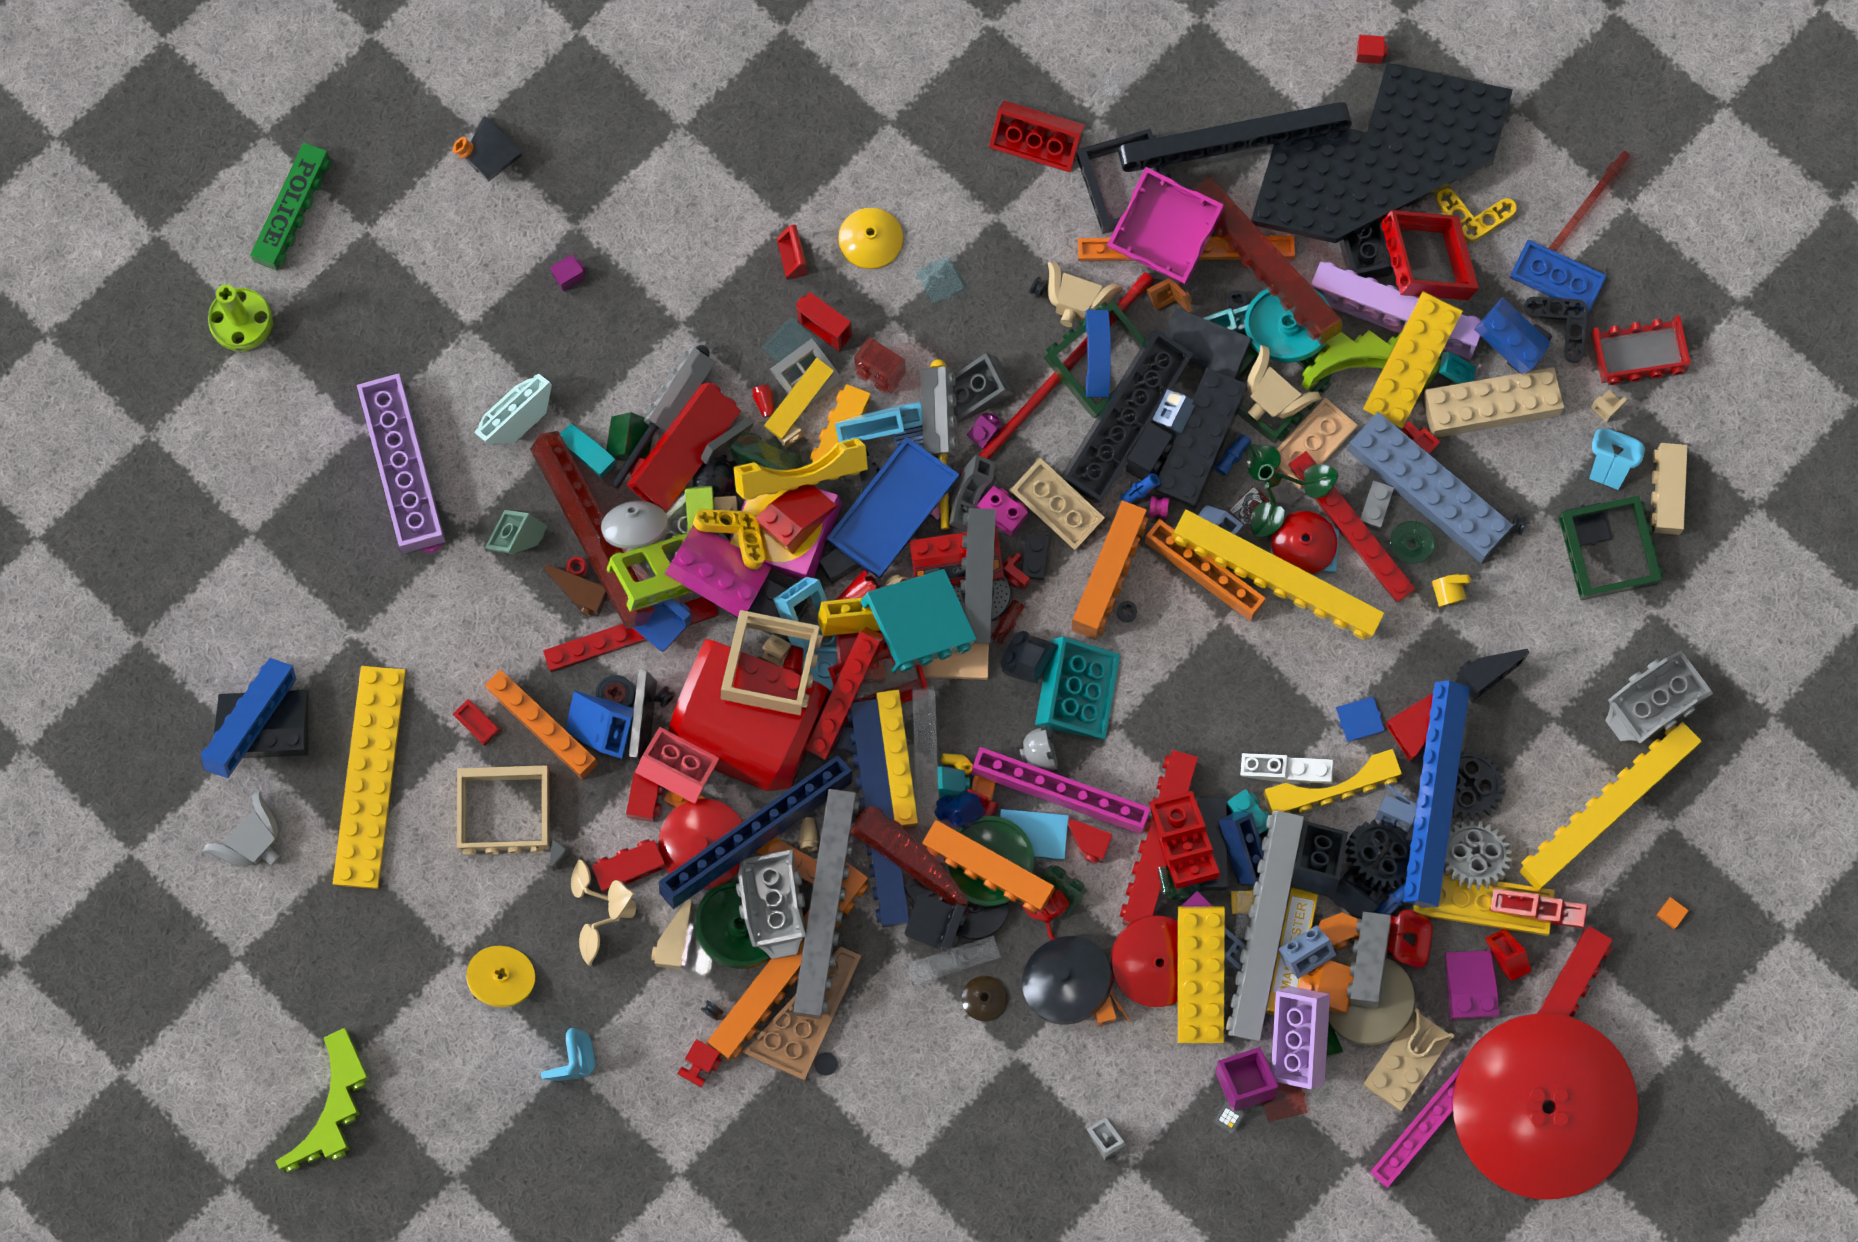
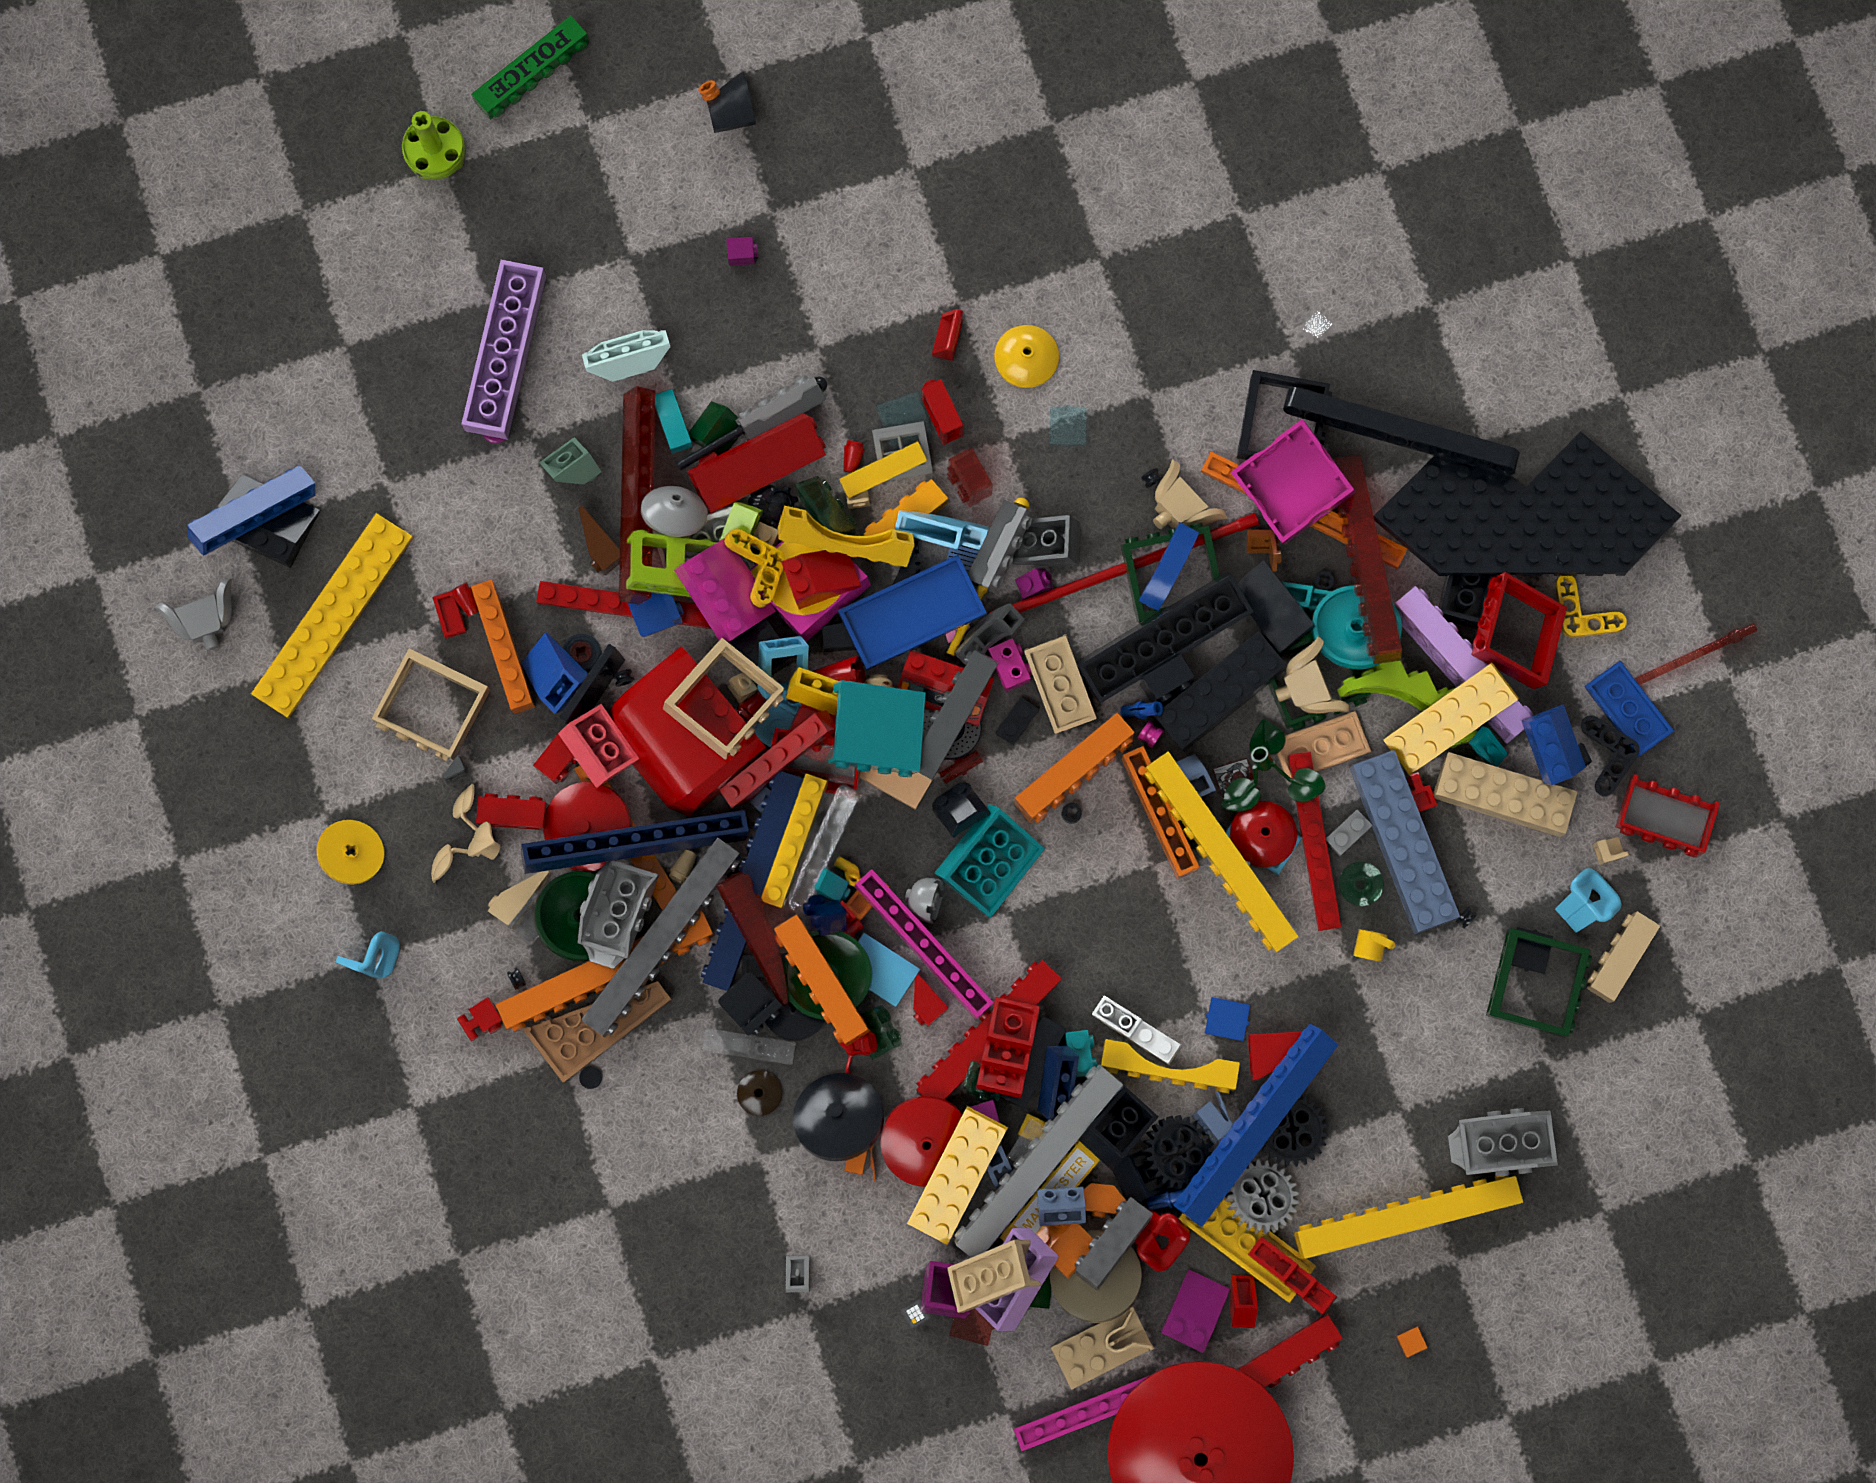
camera: 25 degrees right, 5 degrees up
(340, 1108) = (130, 913): lime arch -> none
(484, 699) = (464, 597): none -> red cone
(577, 561) = (609, 515): red plate -> none
(725, 441) = (795, 476): dark grey tile -> none
(1016, 577) = (989, 732): red bracket -> none
(1036, 136) = (1224, 338): red slope -> none
(1174, 411) = (1208, 655): sand blue piece -> none
(1233, 454) = (1243, 720): blue pin -> none
(1280, 1041) = (991, 1275): none -> tan plate
(1371, 49) = (1572, 412): red brick -> none
(1488, 671) = (1362, 1038): black slope -> none

